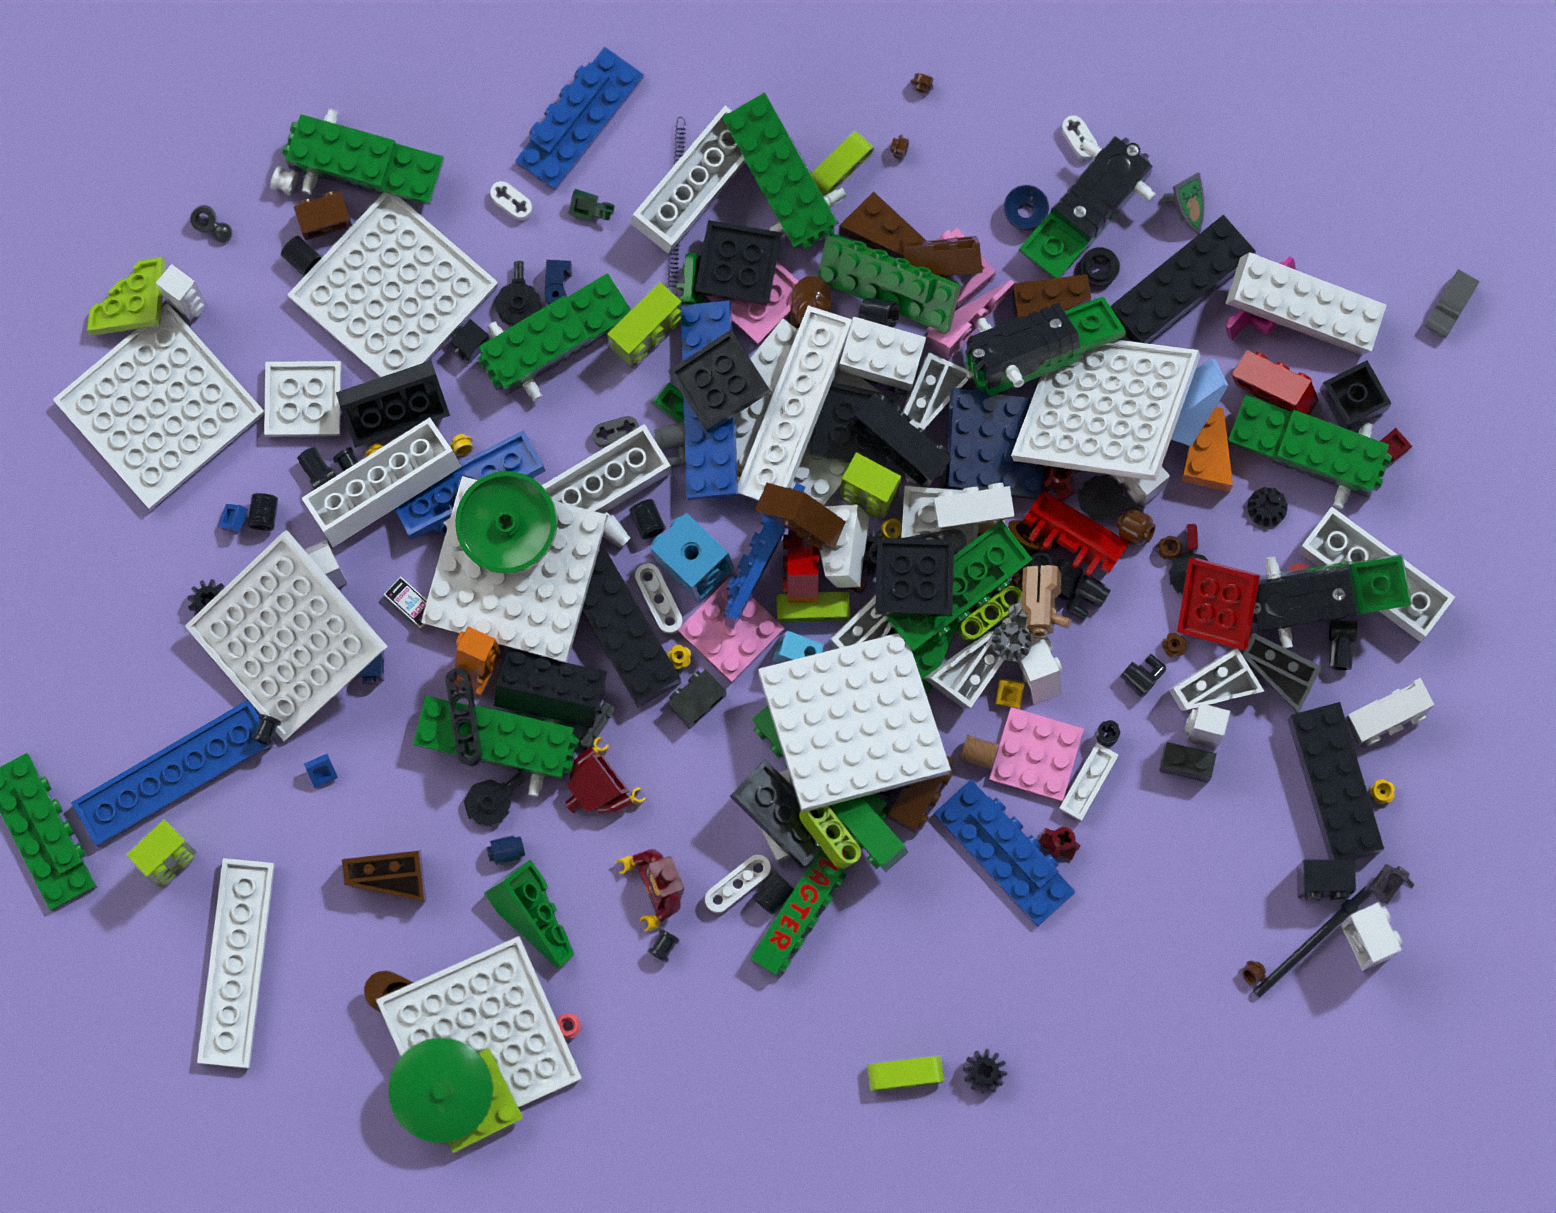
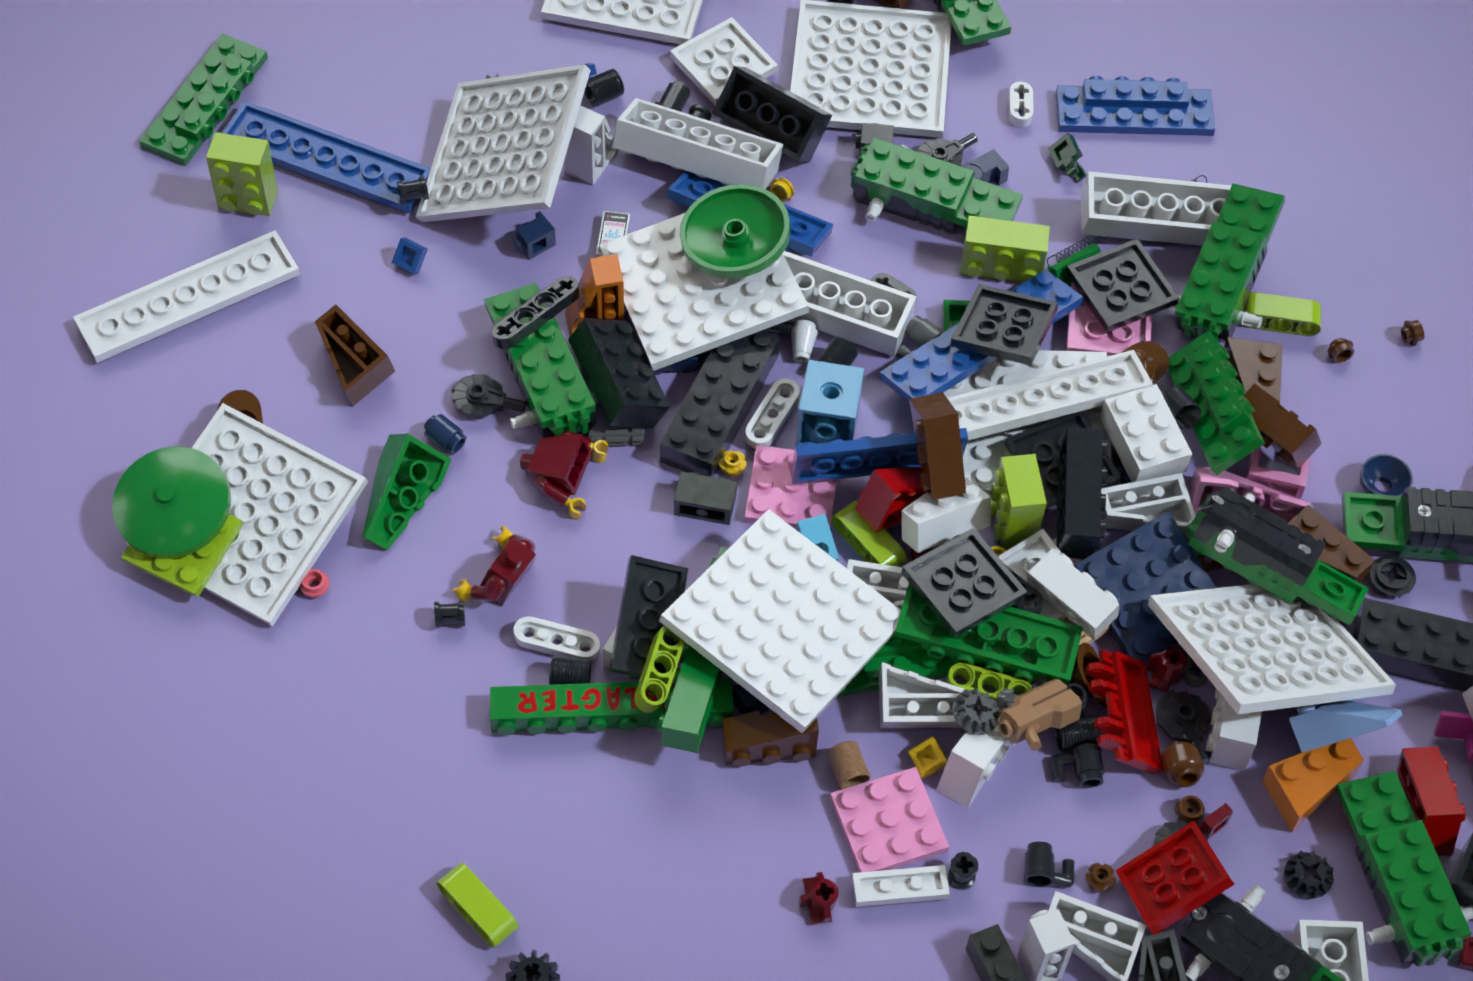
camera: 50 degrees right, 20 degrees down
(1005, 851) = (770, 858): blue plate -> none

